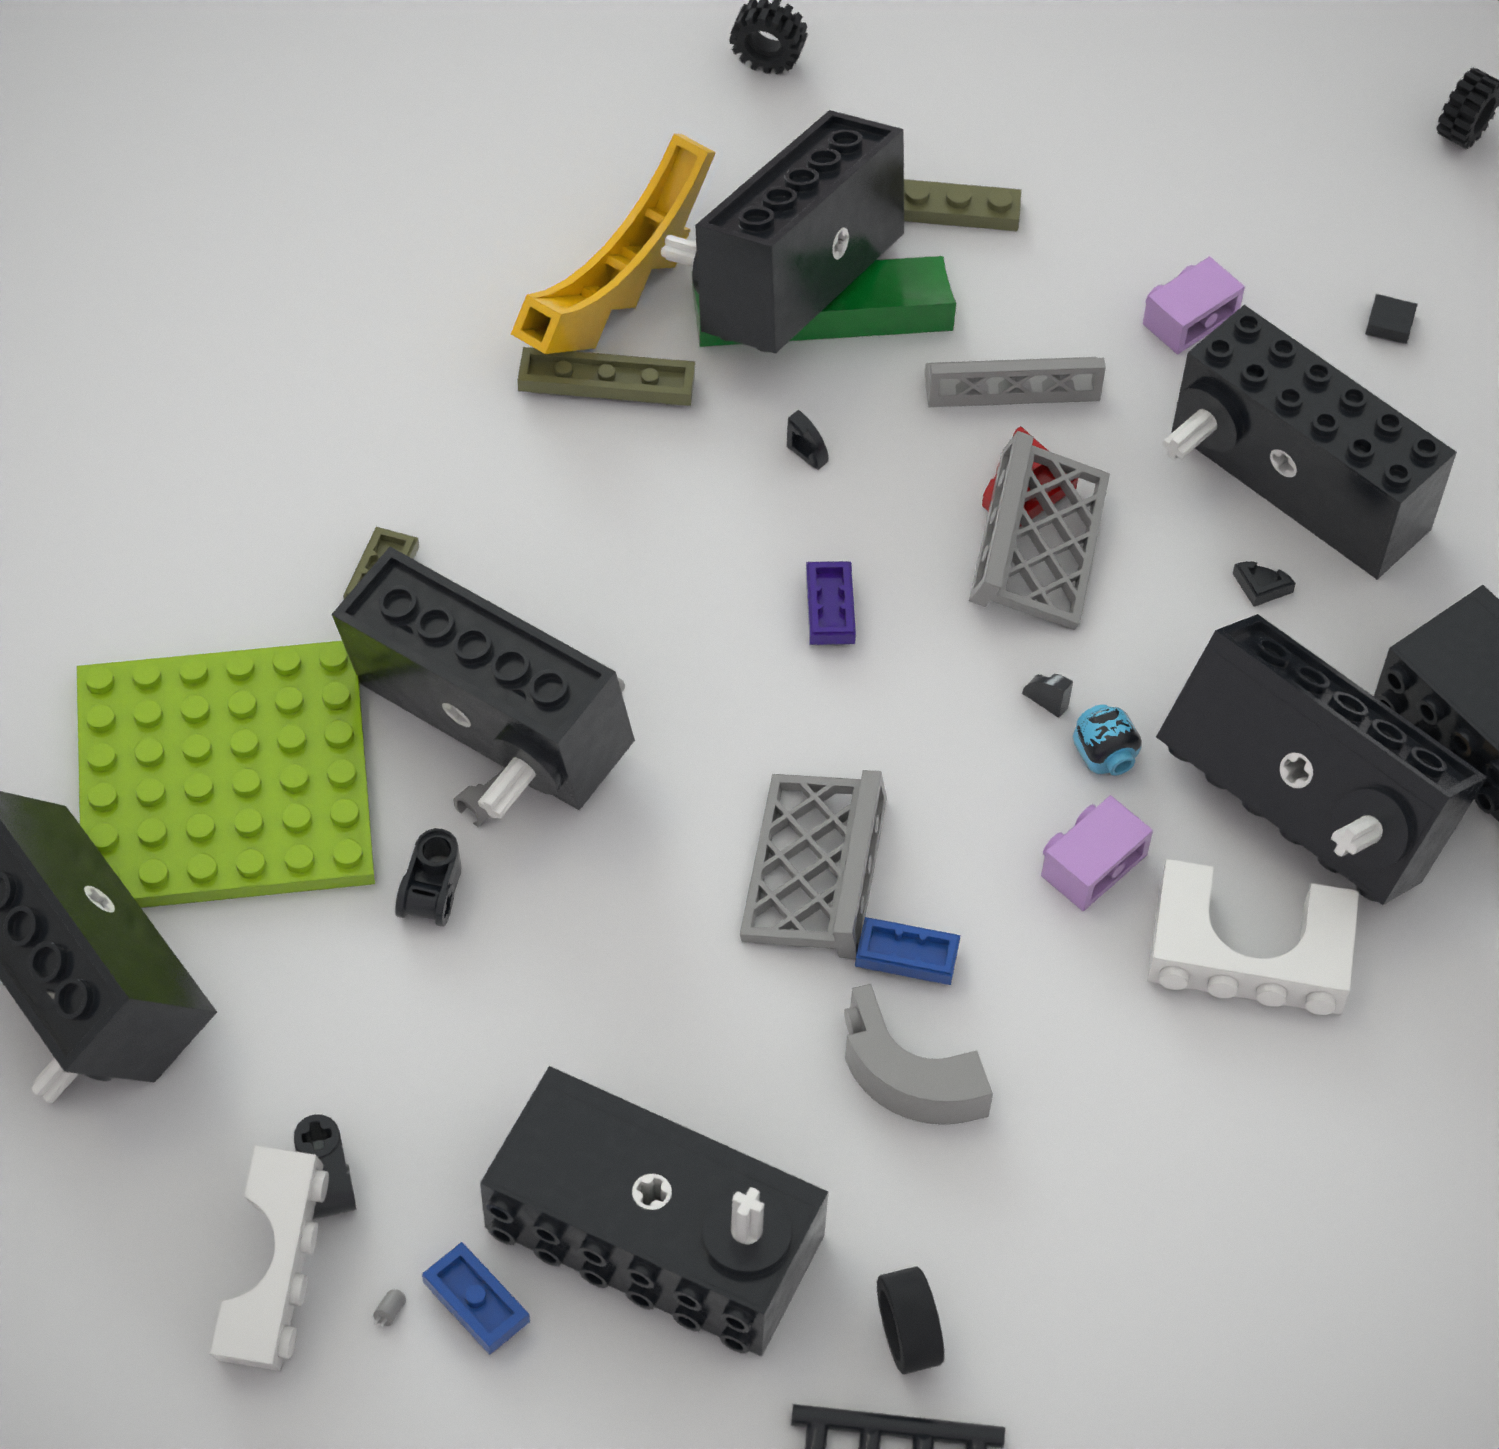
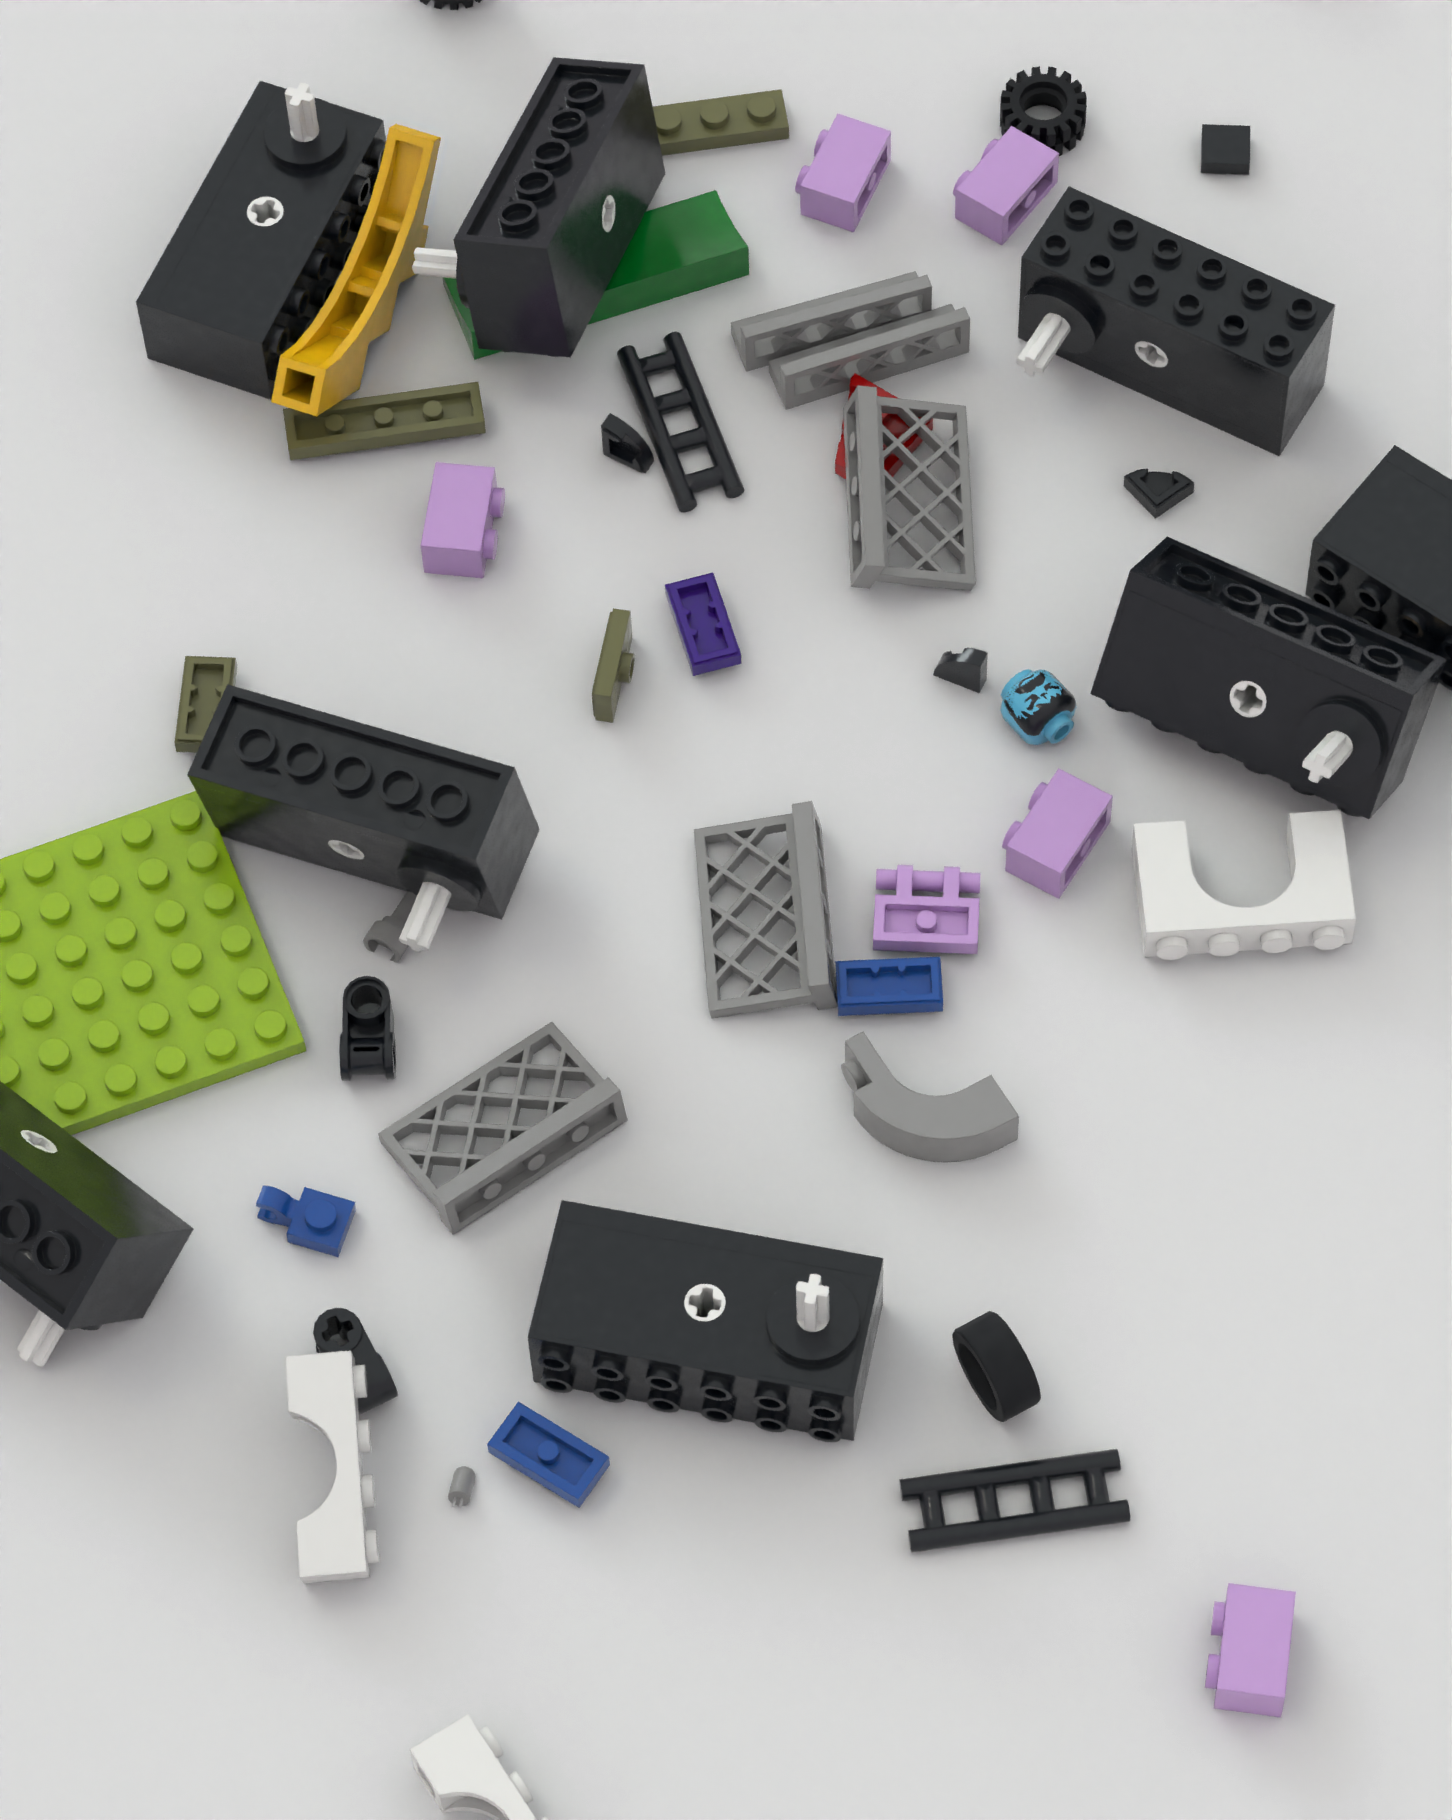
camera: 10 degrees left, 5 degrees up
(331, 1034) = (314, 1221): none -> blue plate
(539, 1017) = (525, 1150): none -> light grey fence
(543, 204) = (262, 238): none -> black piece
(646, 470) = (460, 520): none -> lavender brick
(741, 619) = (614, 665): none -> olive plate
(842, 451) = (668, 446): none -> black bar
(958, 903) = (926, 922): none -> lavender plate
(1040, 415) = (871, 354): none -> light grey fence
(1056, 265) = (844, 172): none -> lavender brick
(1245, 238) = (1049, 91): none -> black tyre

